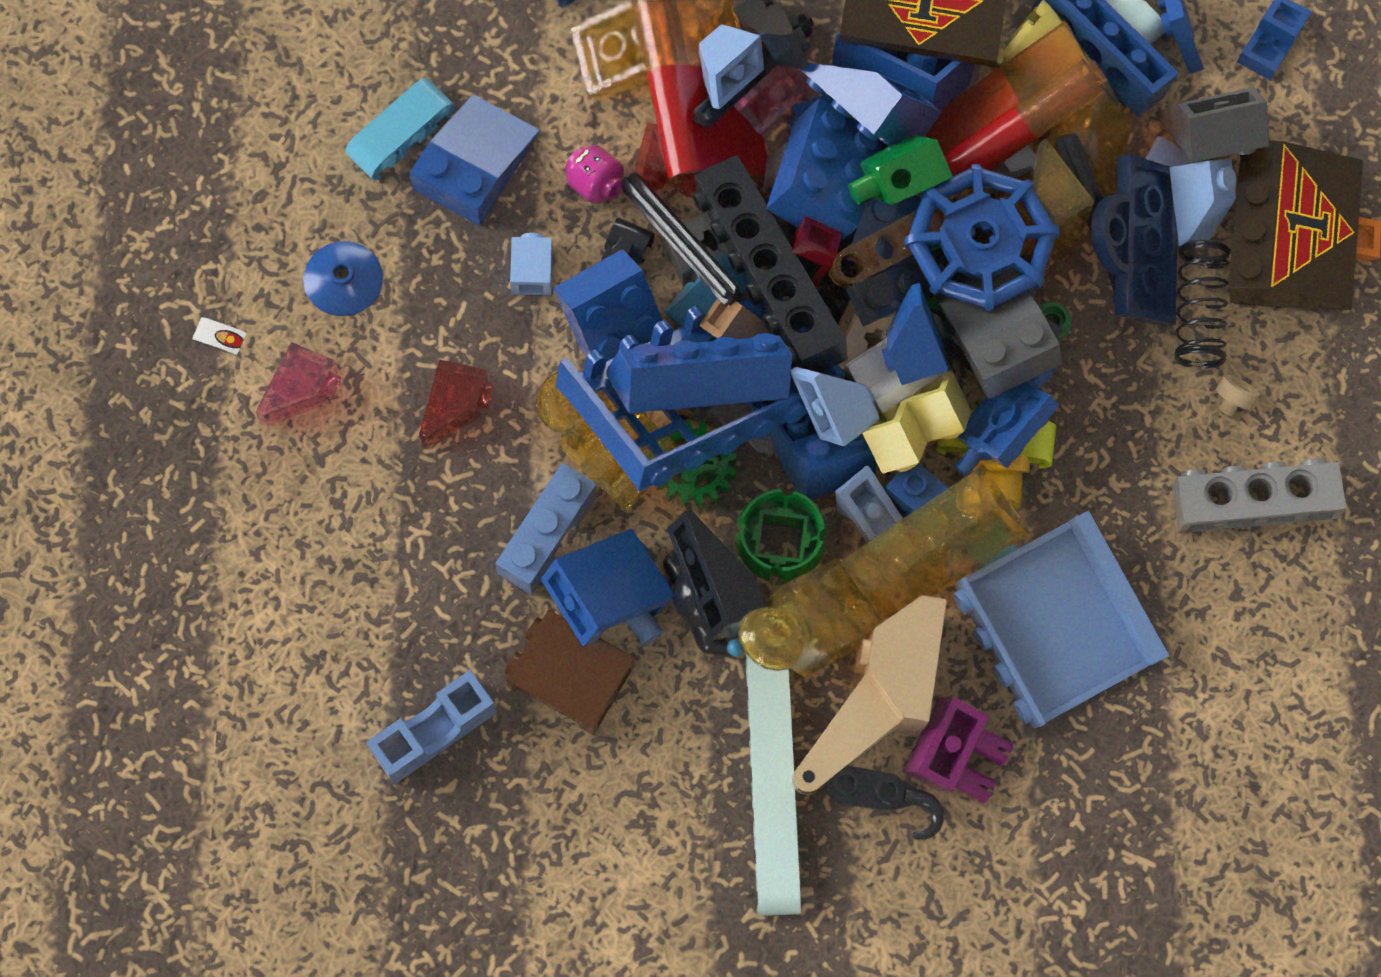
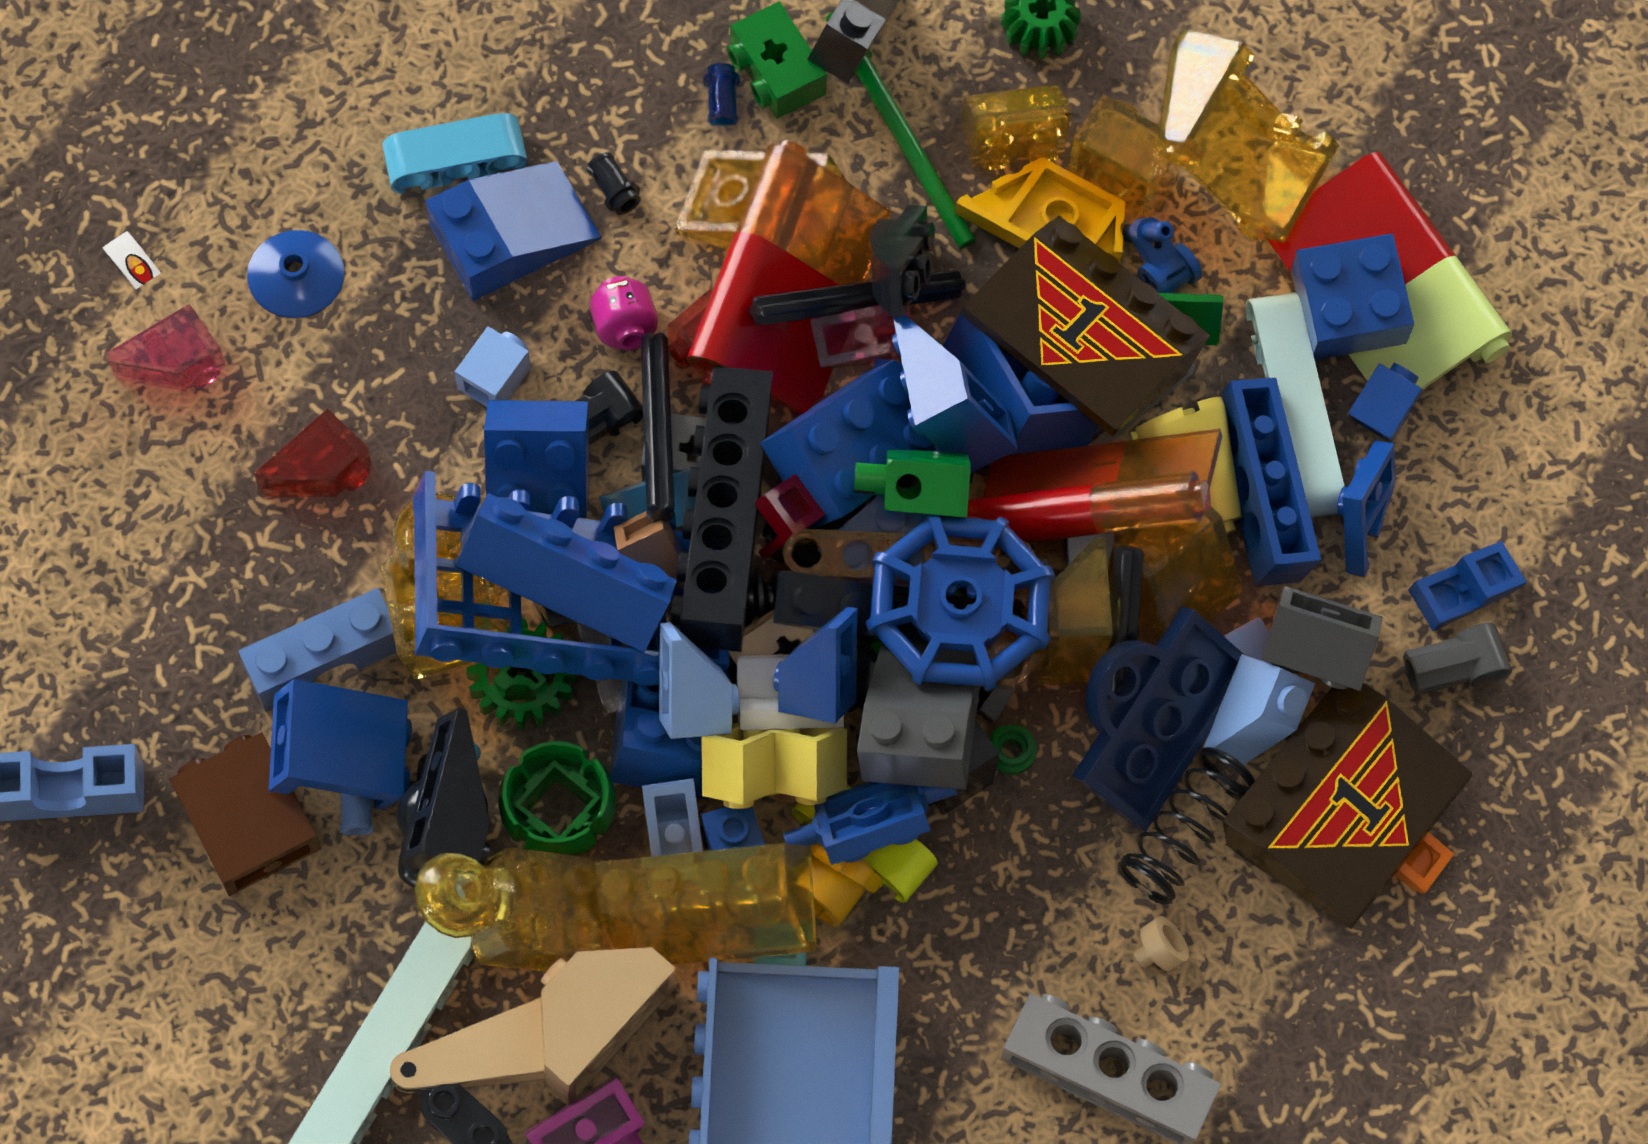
camera: 30 degrees right, 5 degrees down
(527, 88) = (619, 192): none -> black pin
(729, 62) = (824, 269): light blue slope -> none
(1304, 88) = (1468, 657): none -> dark grey piece

